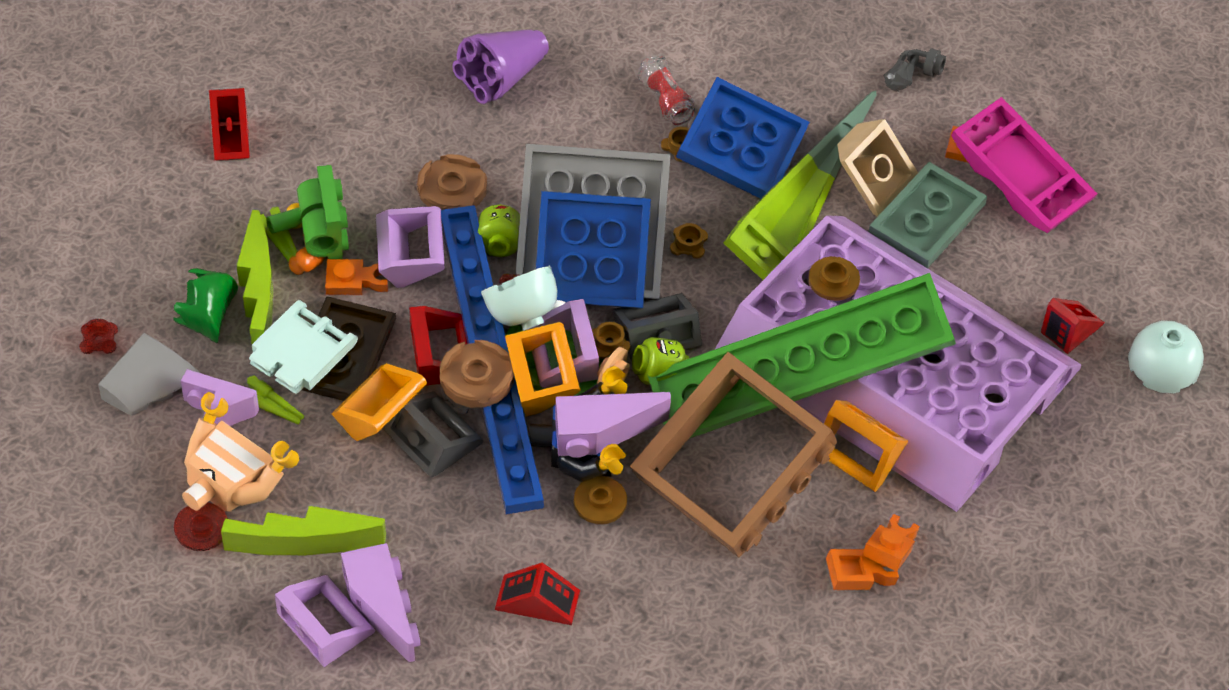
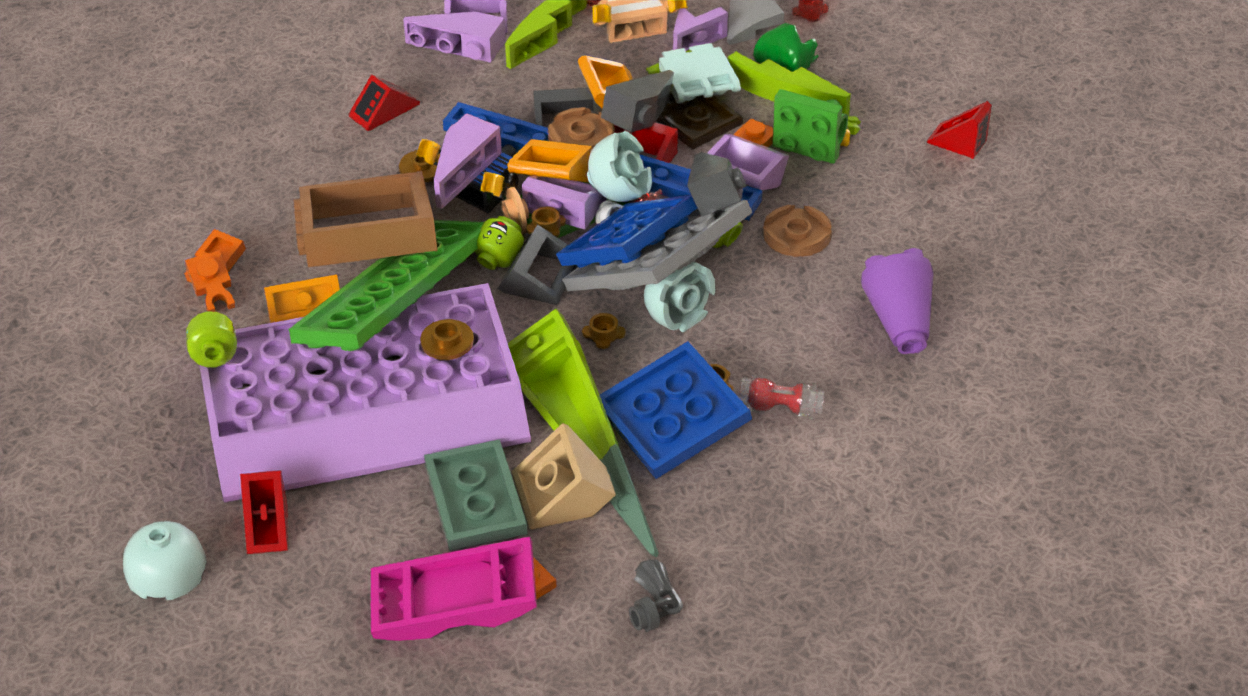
camera: 130 degrees right, 10 degrees down
(407, 335) = (637, 101): none -> dark grey slope
(507, 191) = (714, 183): none -> dark grey slope
(990, 423) = (211, 339): none -> lime head

